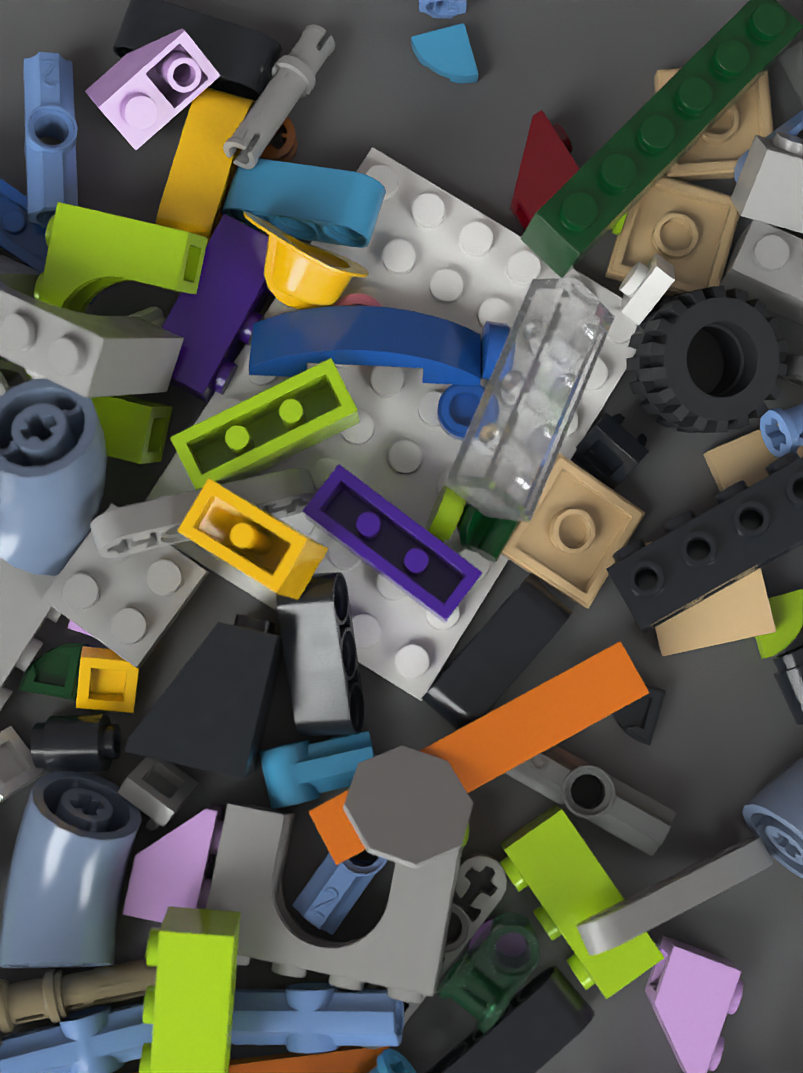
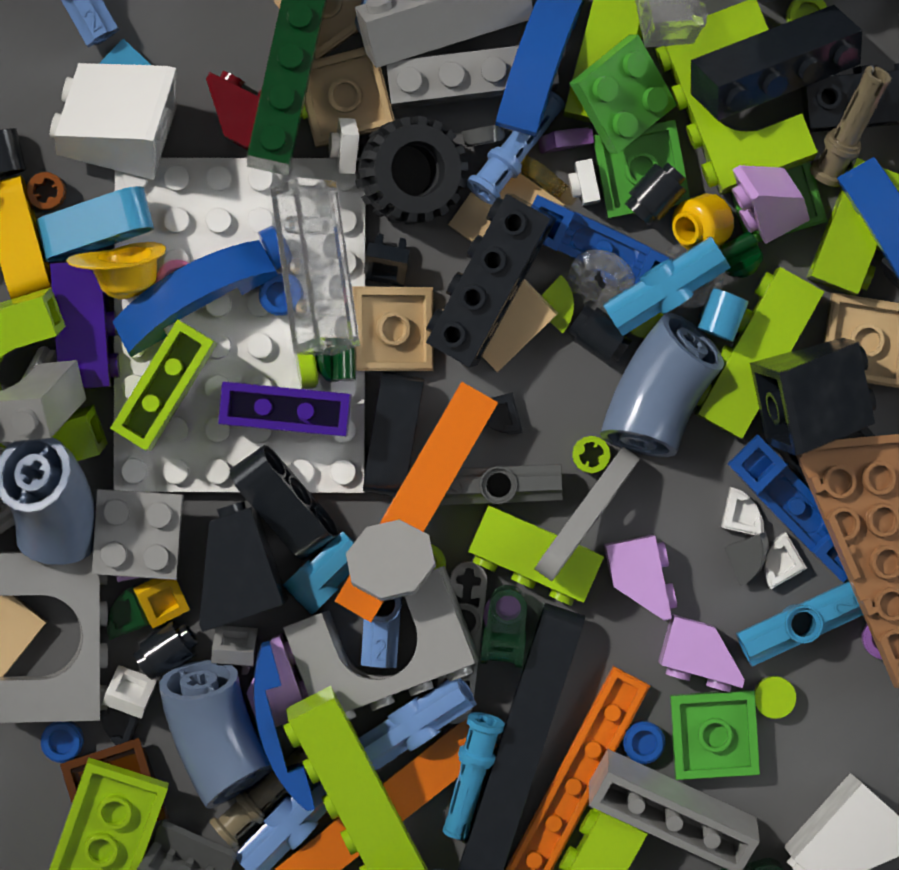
camera: 30 degrees left, 5 degrees up
(124, 993) = (293, 776): none -> blue slope
(156, 521) = (159, 460): light grey beam -> none
(252, 540) = (200, 459): yellow slope -> none
(291, 80) = (36, 148): light grey pin -> none
(407, 96) = (116, 116): none -> white slope
(723, 836) = (579, 449): none -> lime bush

